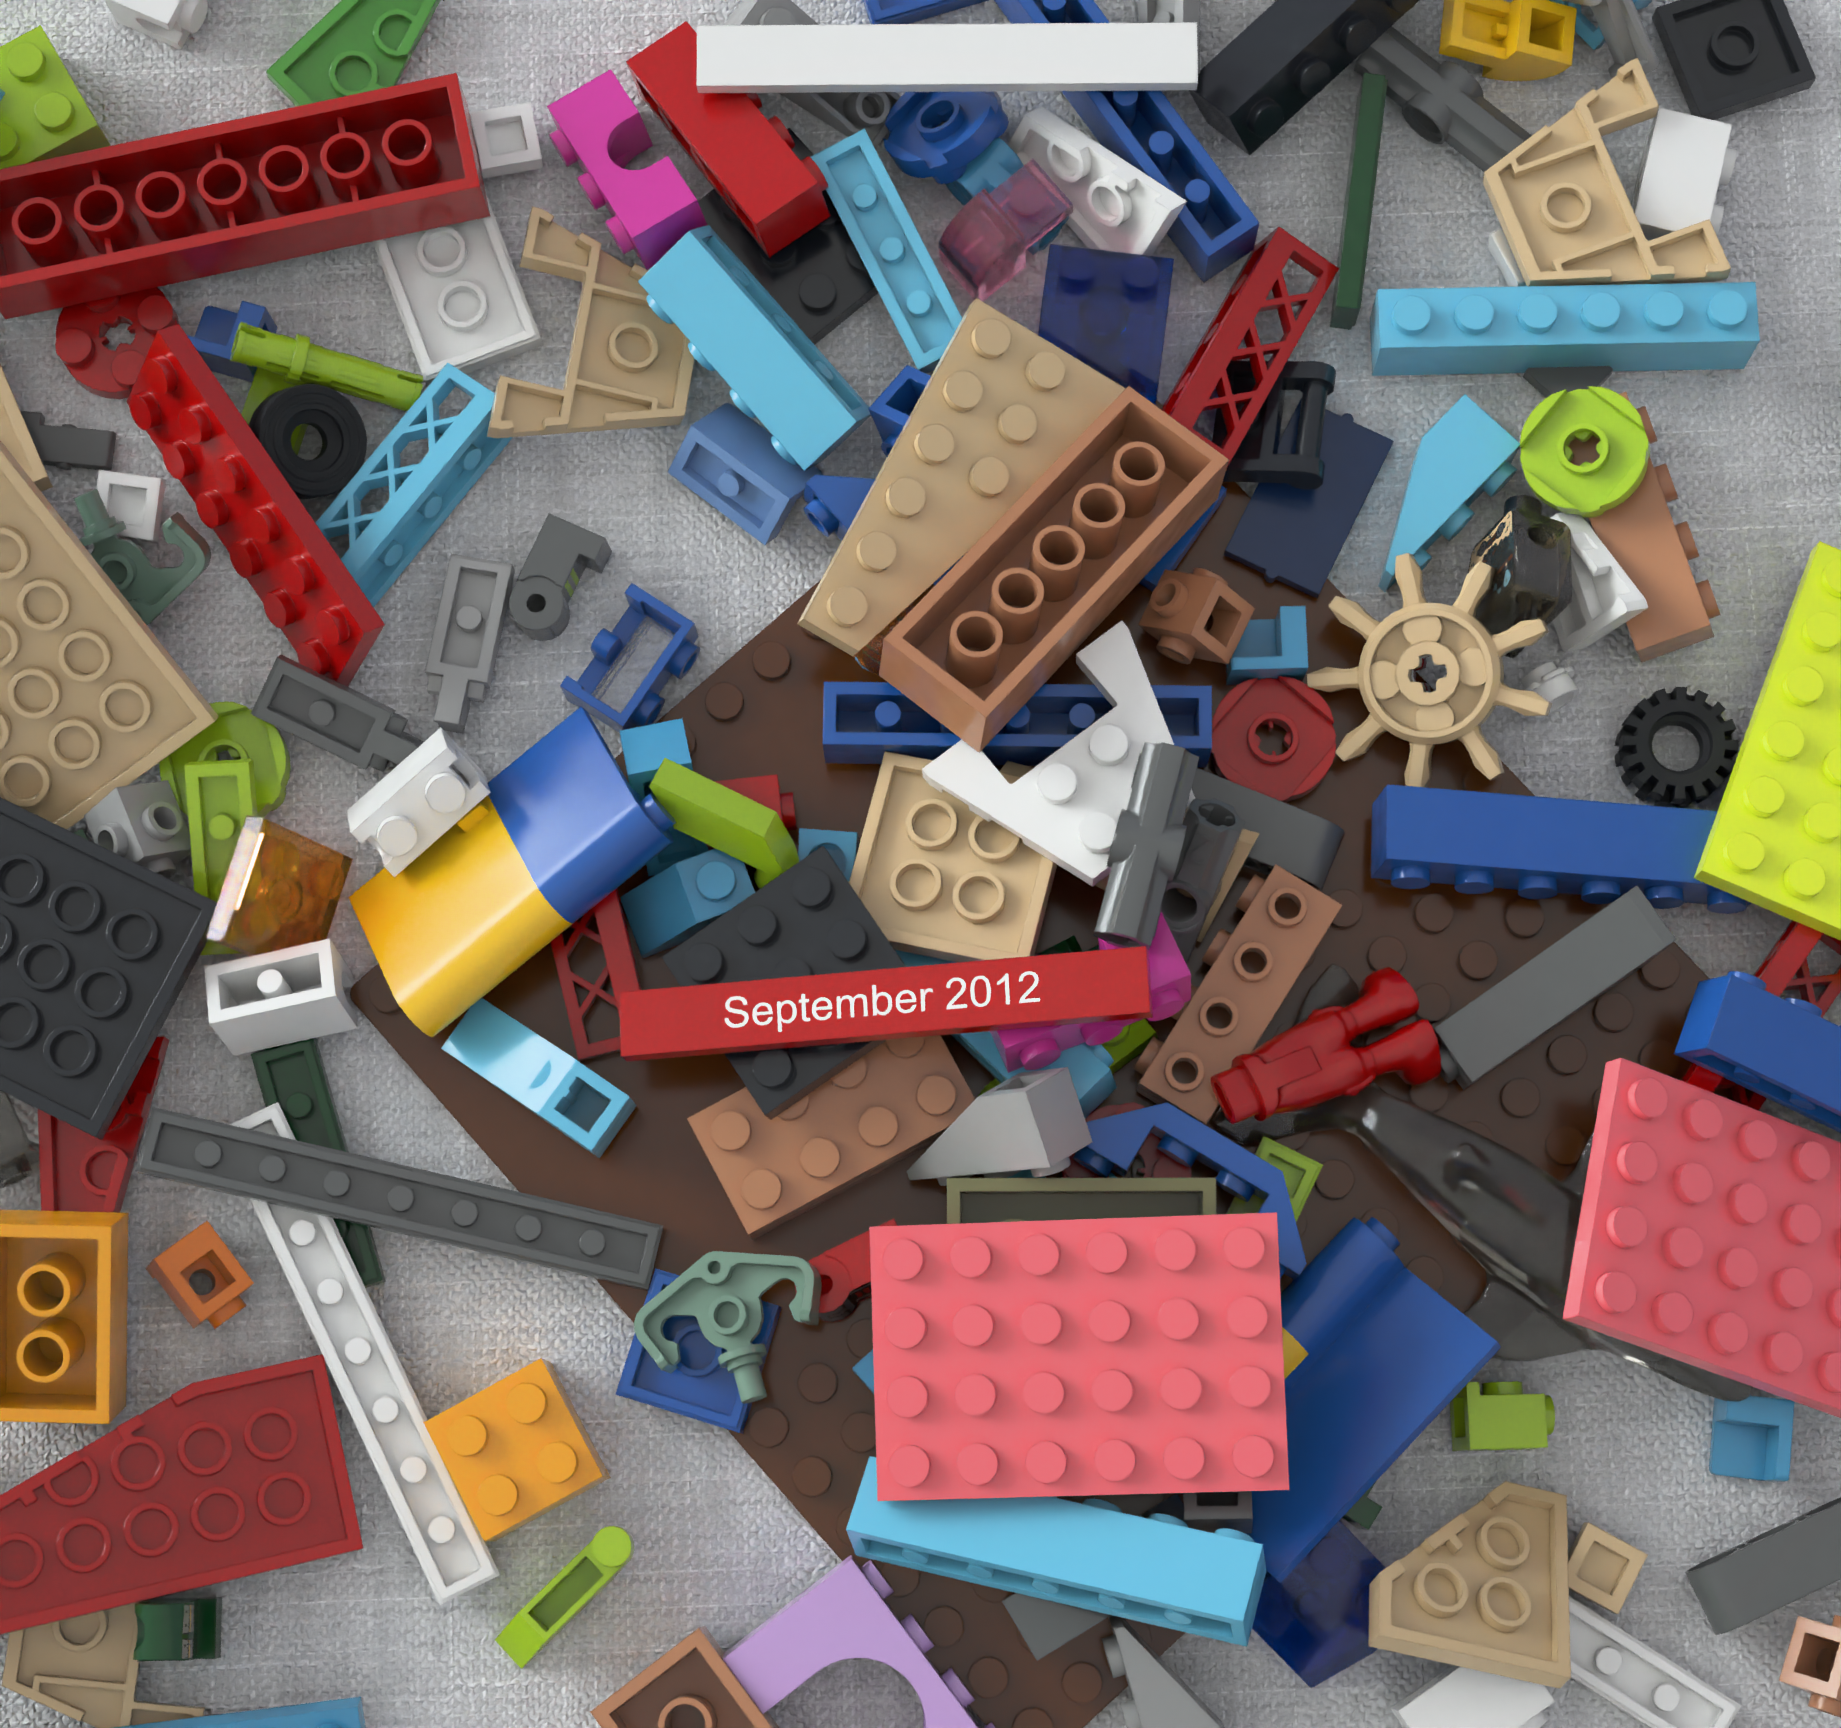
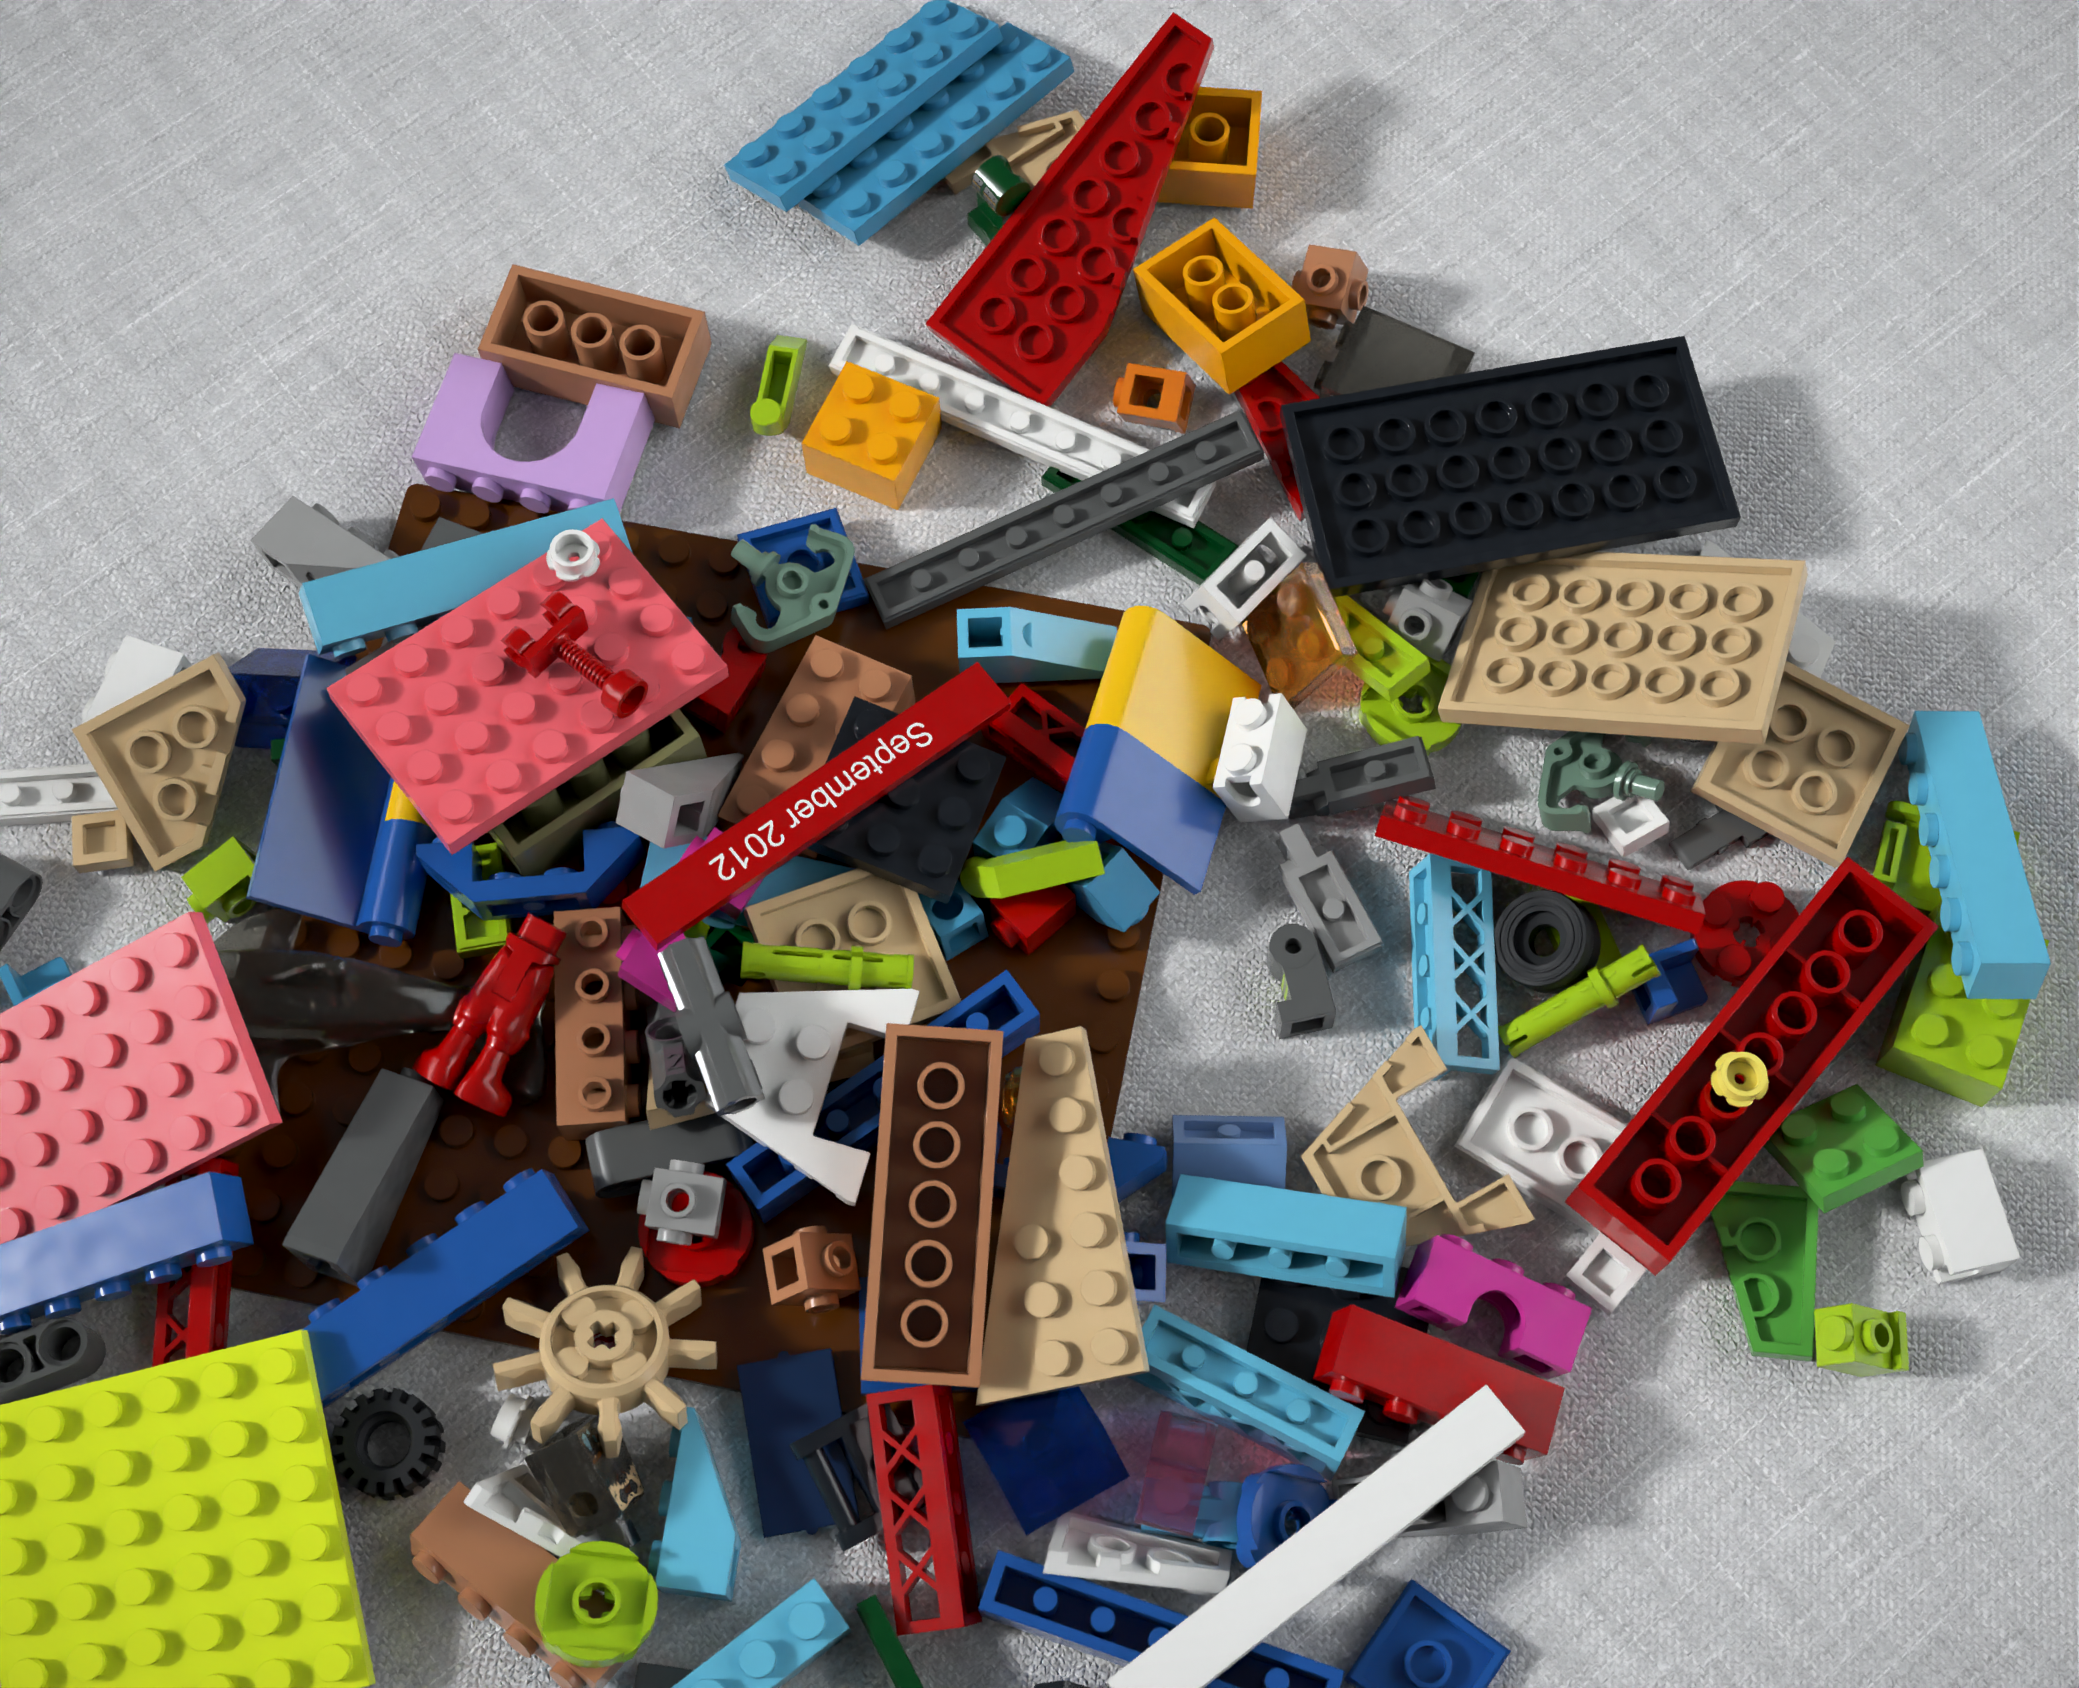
camera: 140 degrees right, 10 degrees down
(212, 75) = (1843, 1148): none -> bright green plate
(261, 149) = (1743, 1064): none -> light yellow plate
(635, 663) = (1195, 960): blue window -> none
(924, 1456) = (572, 544): none -> white plate
(969, 836) = (836, 967): none -> lime pin
(1001, 1252) = (621, 692): none -> red bar
(1271, 648) = (742, 1293): dark azure panel -> none
(1274, 742) = (704, 1208): none -> light grey brick

